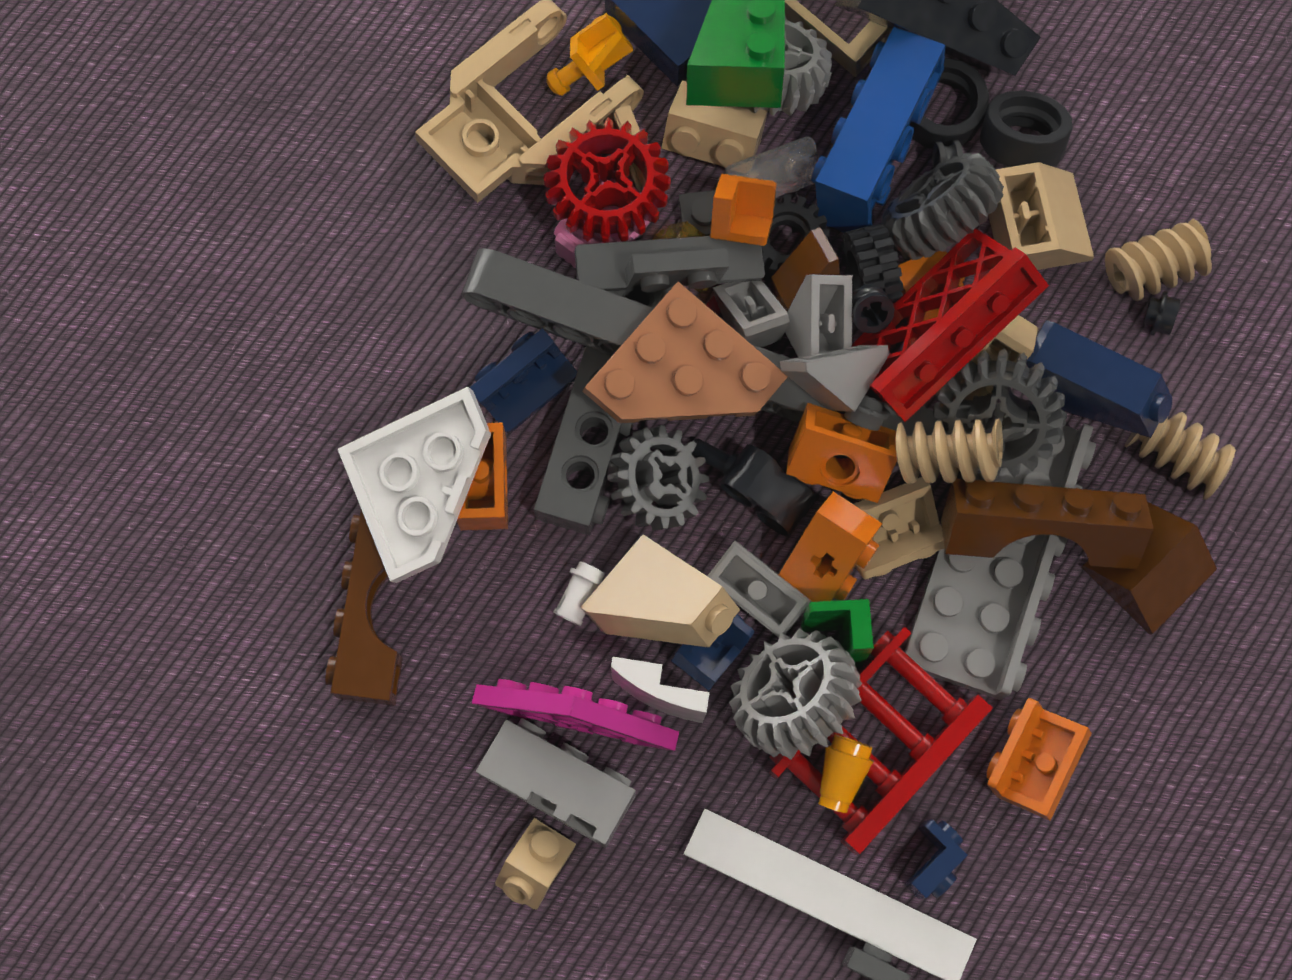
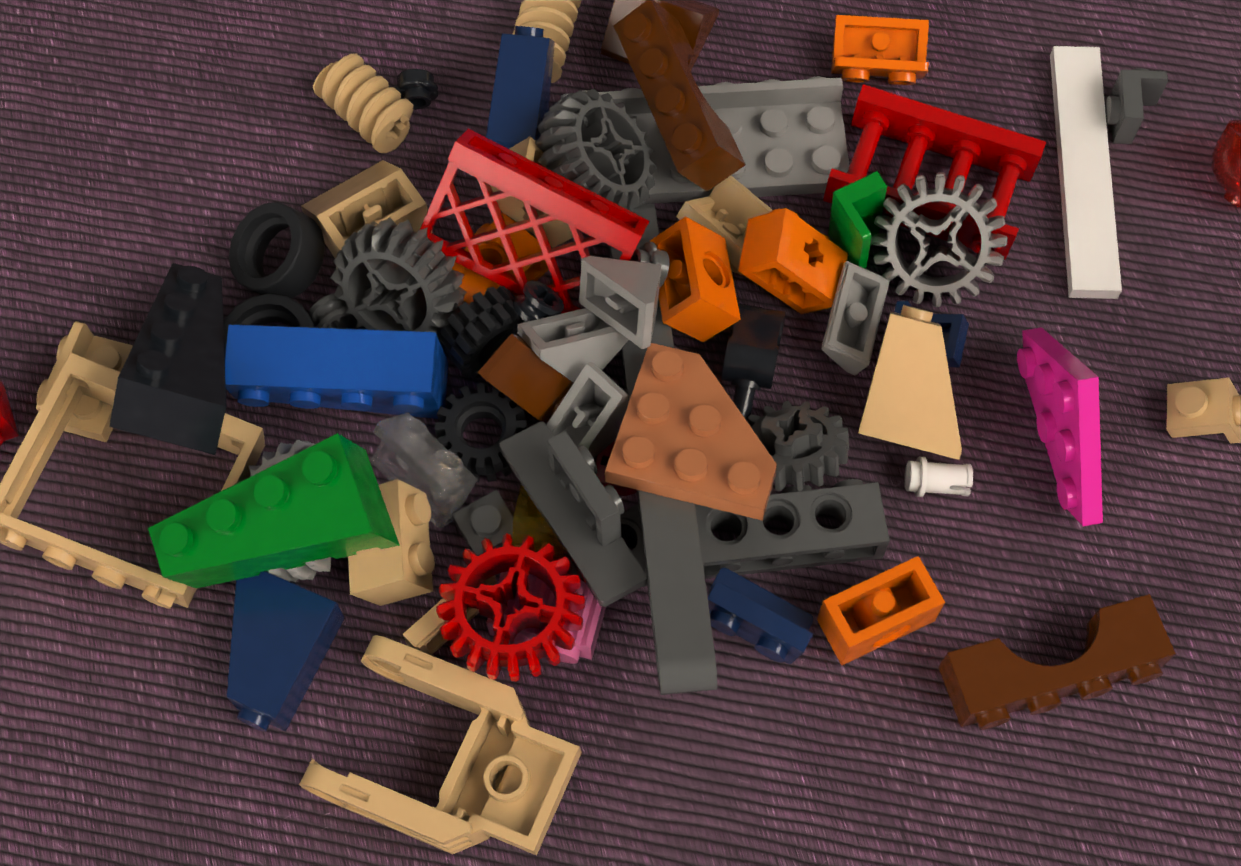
camera: 110 degrees left, 10 degrees down
(416, 479) = (929, 654): white plate -> none
(557, 781) = (1133, 406): light grey wedge -> none
(592, 53) = (345, 708): light orange piece -> none
(643, 682) = (1002, 351): white slope -> none
(743, 209) = (486, 463): orange panel -> none
(843, 772) = (991, 172): light orange cone -> none
(936, 873) = (1012, 91): dark blue bracket -> none
(949, 452) = (657, 172): tan piece -> none

